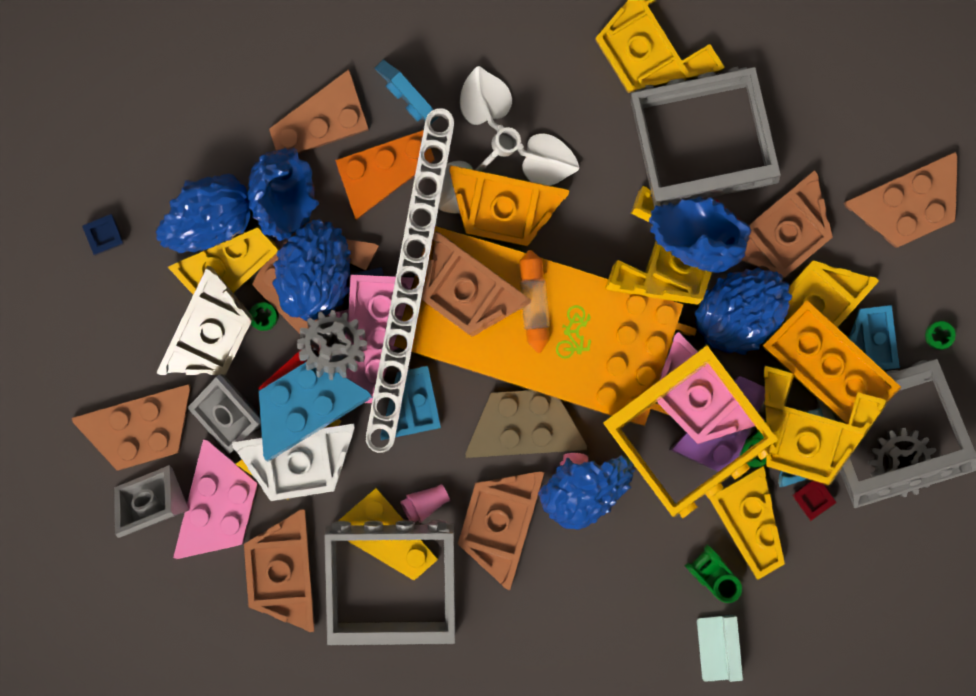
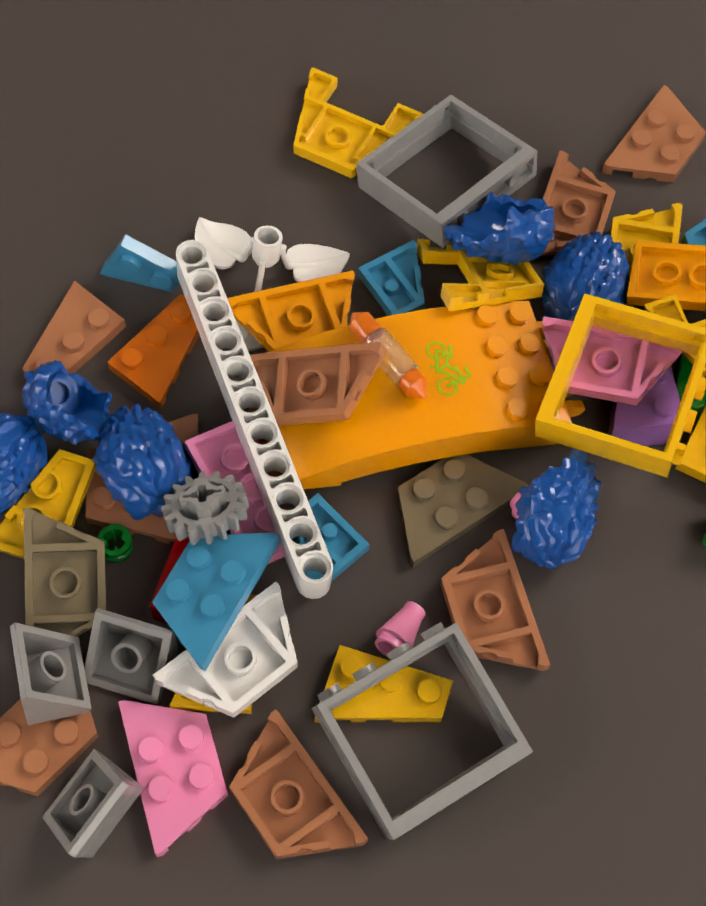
camera: 35 degrees left, 25 degrees down
(166, 399) = (49, 673): none -> light grey slope
(600, 217) = (395, 280): none -> dark azure wing

